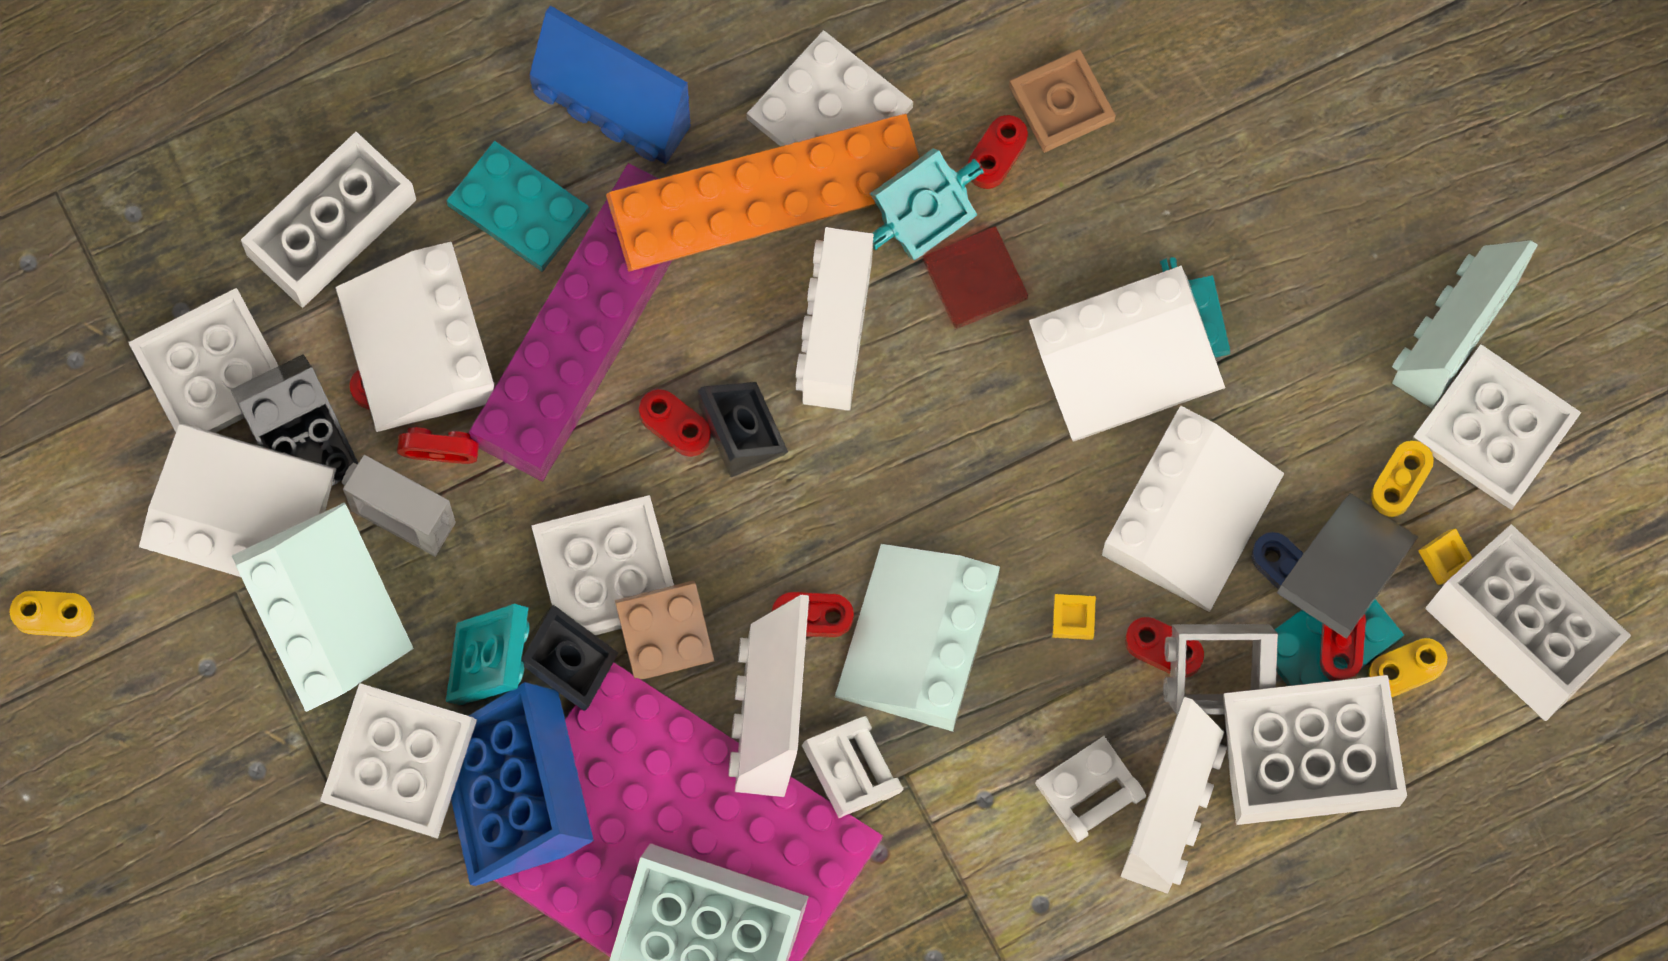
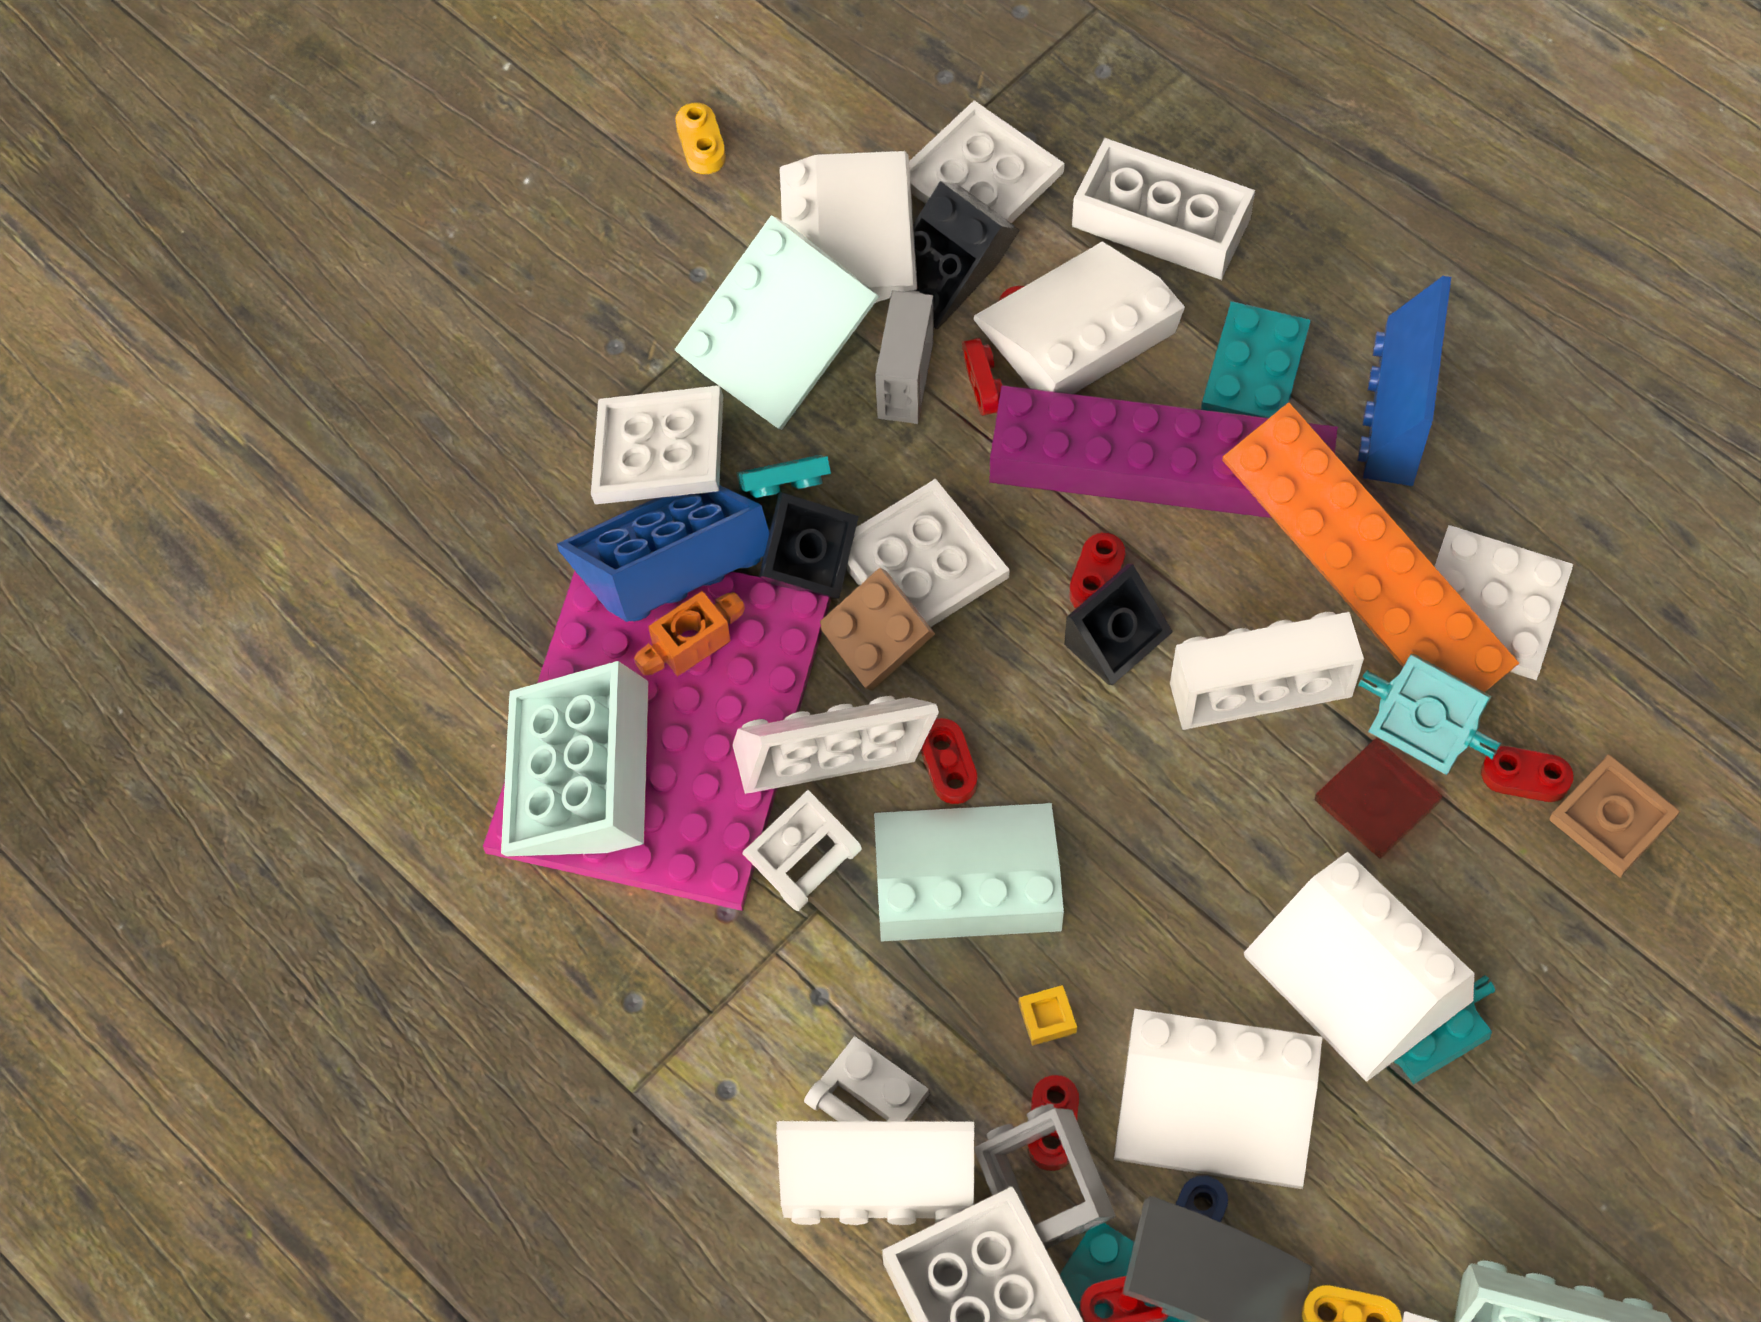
camera: 75 degrees right, 10 degrees down
(623, 818) = (685, 652): none -> orange piece

